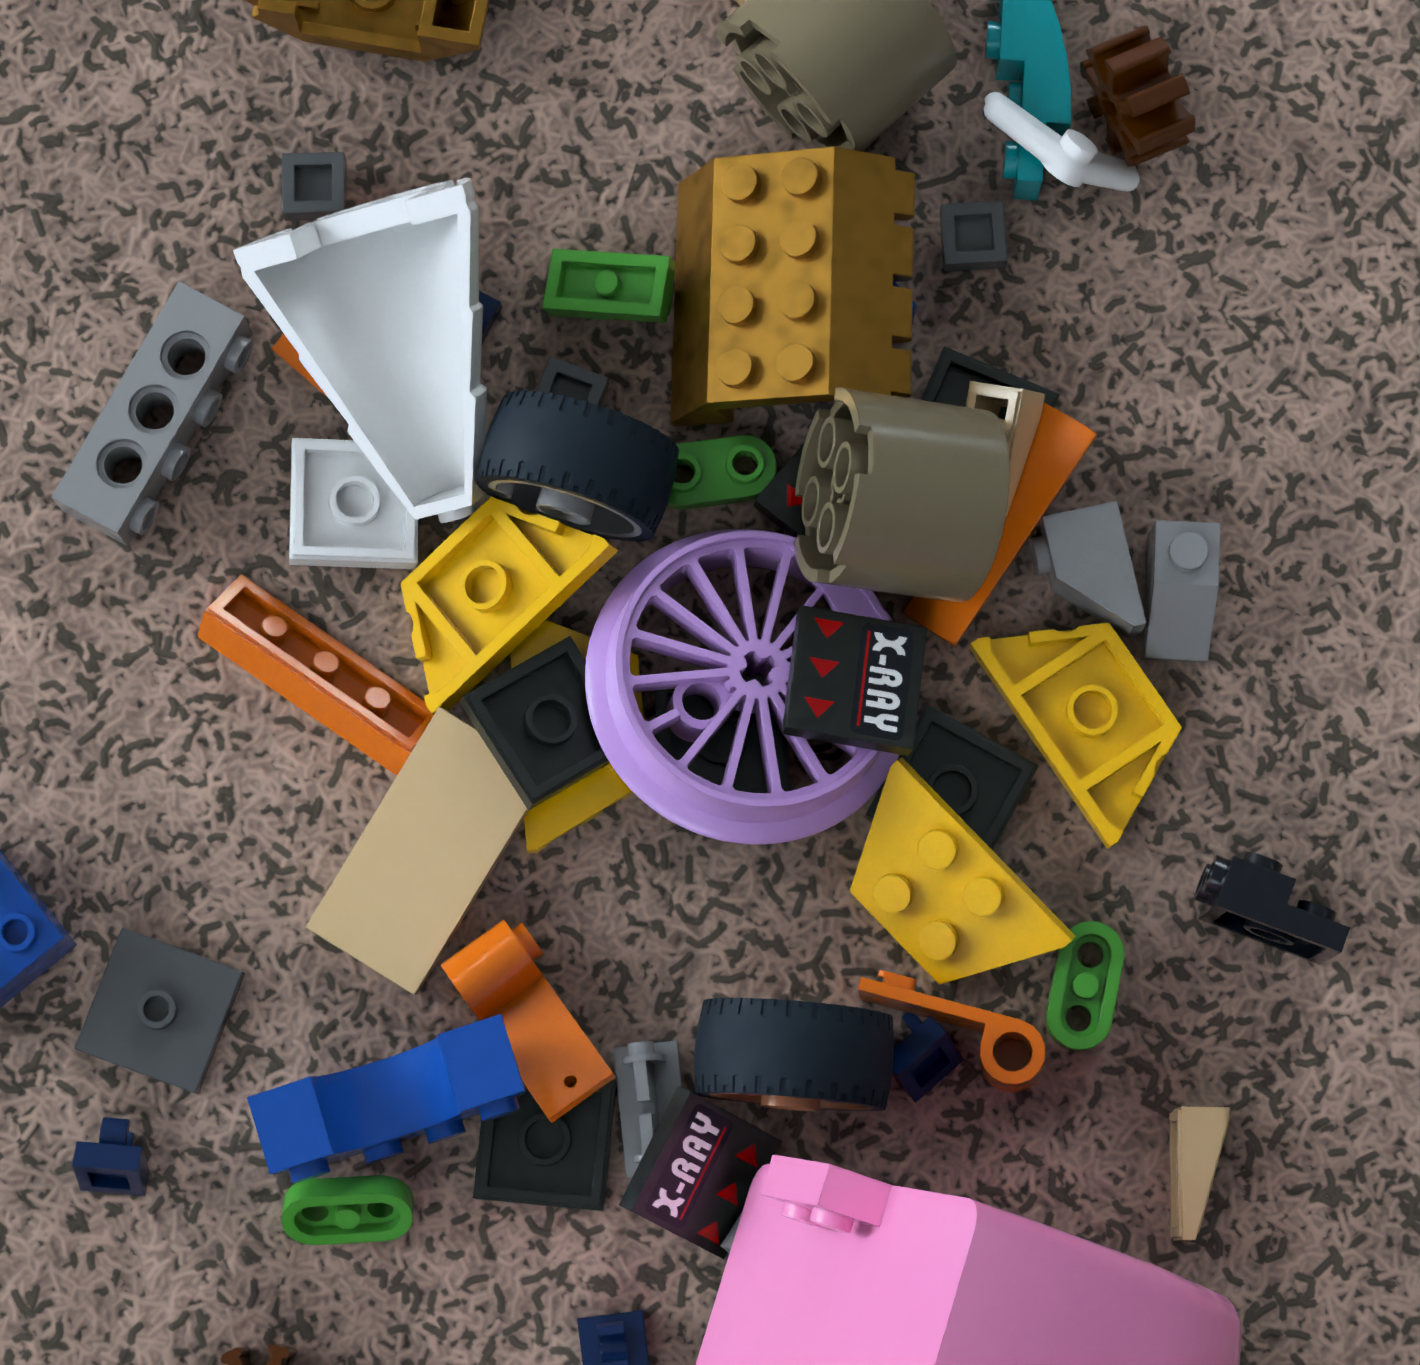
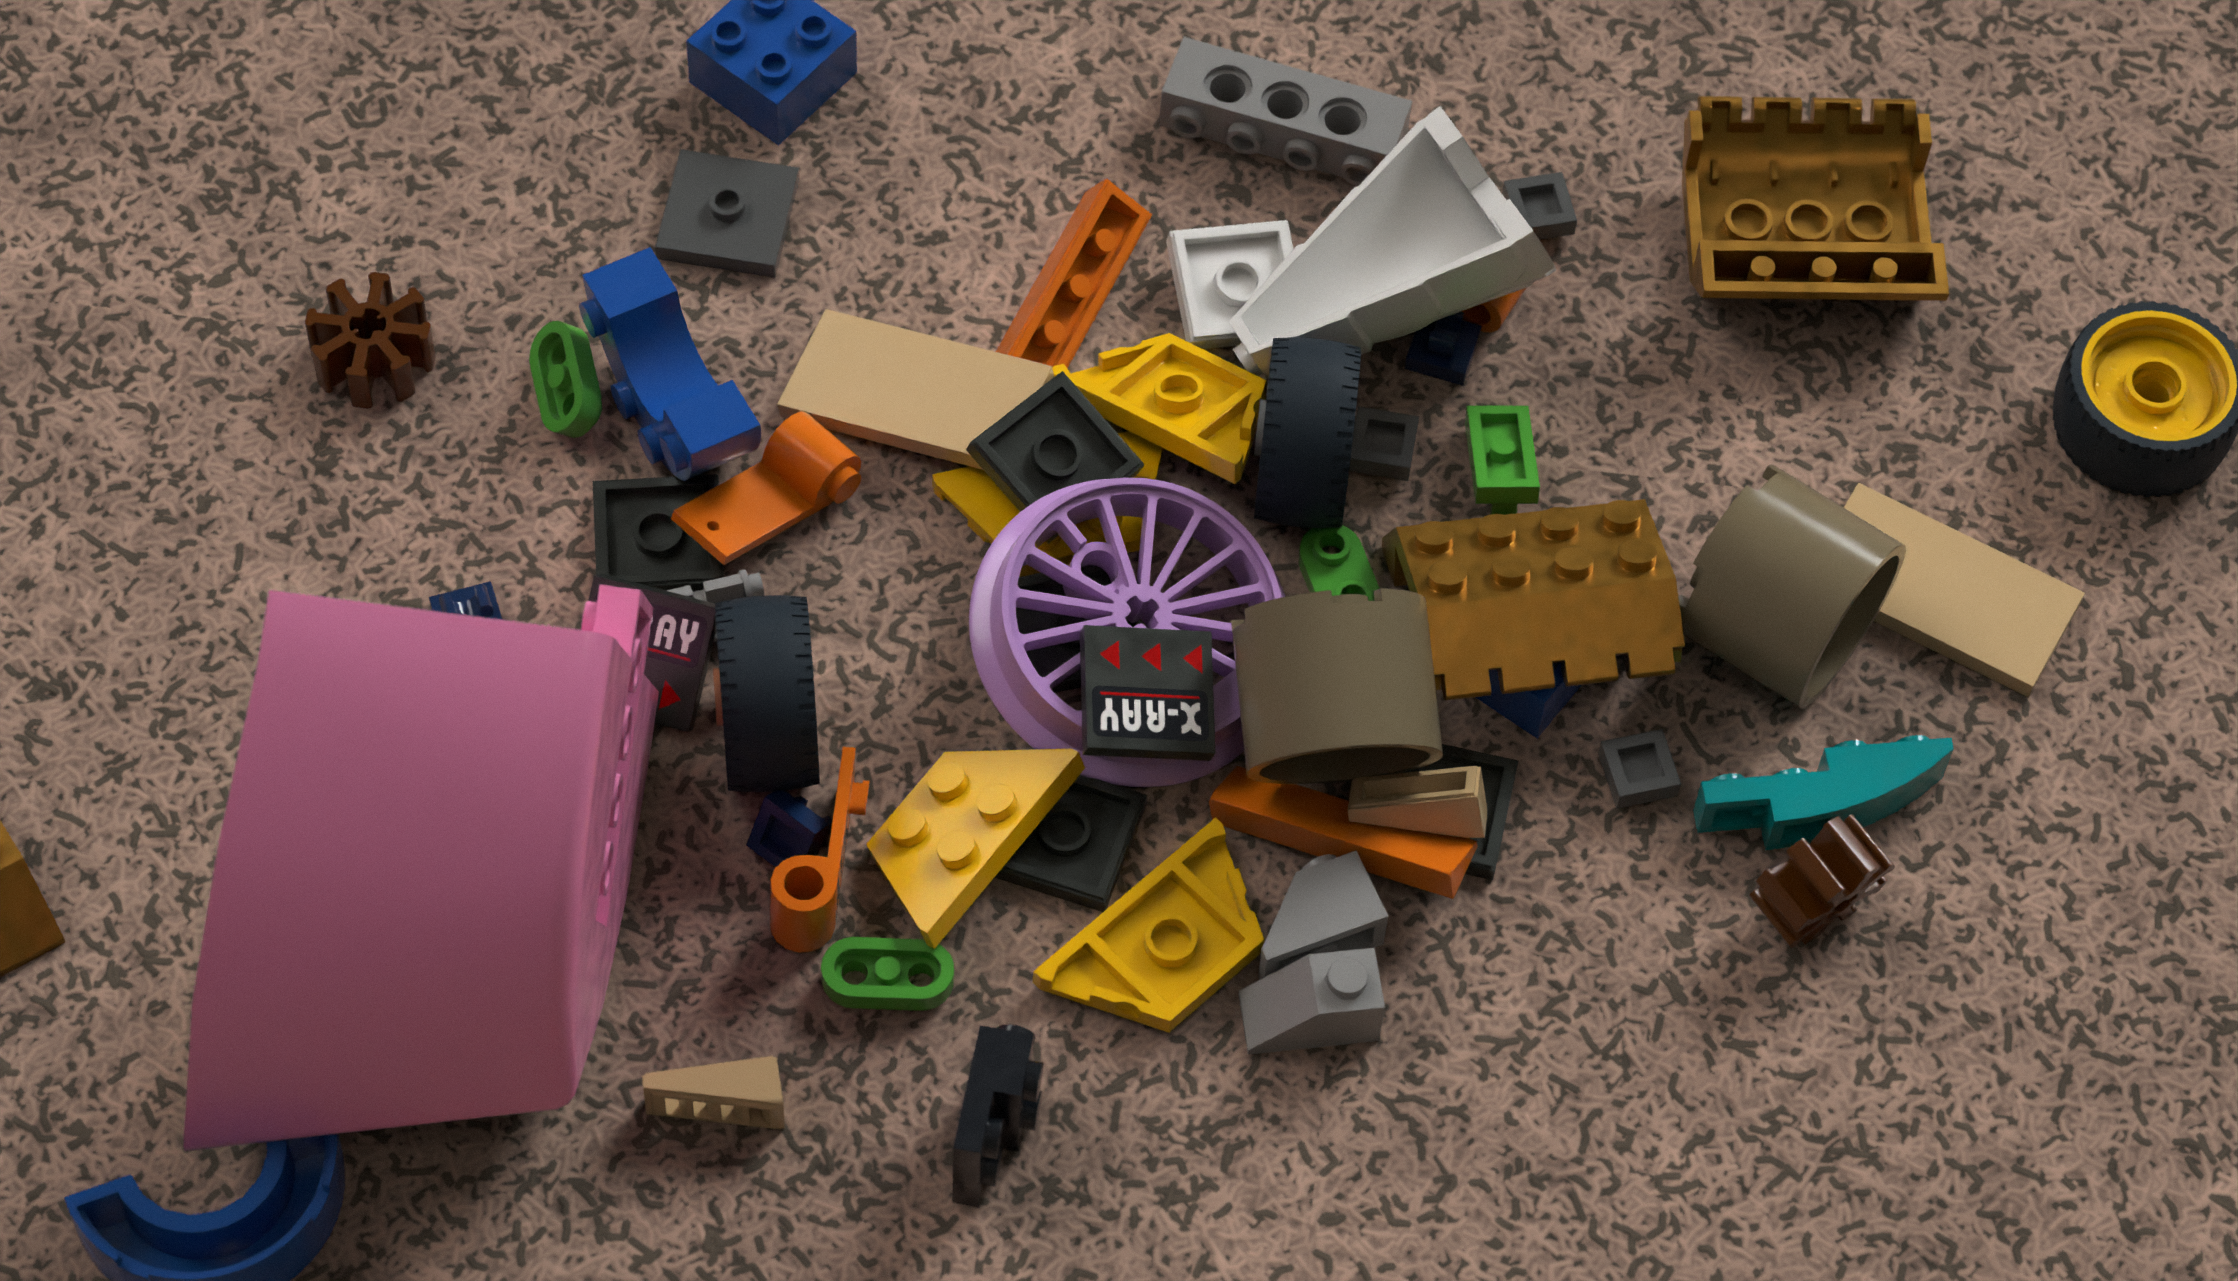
camera: 75 degrees right, 20 degrees down
(113, 1162) = (582, 191): dark blue tile -> none
(1067, 157) = (1738, 818): white piece -> none

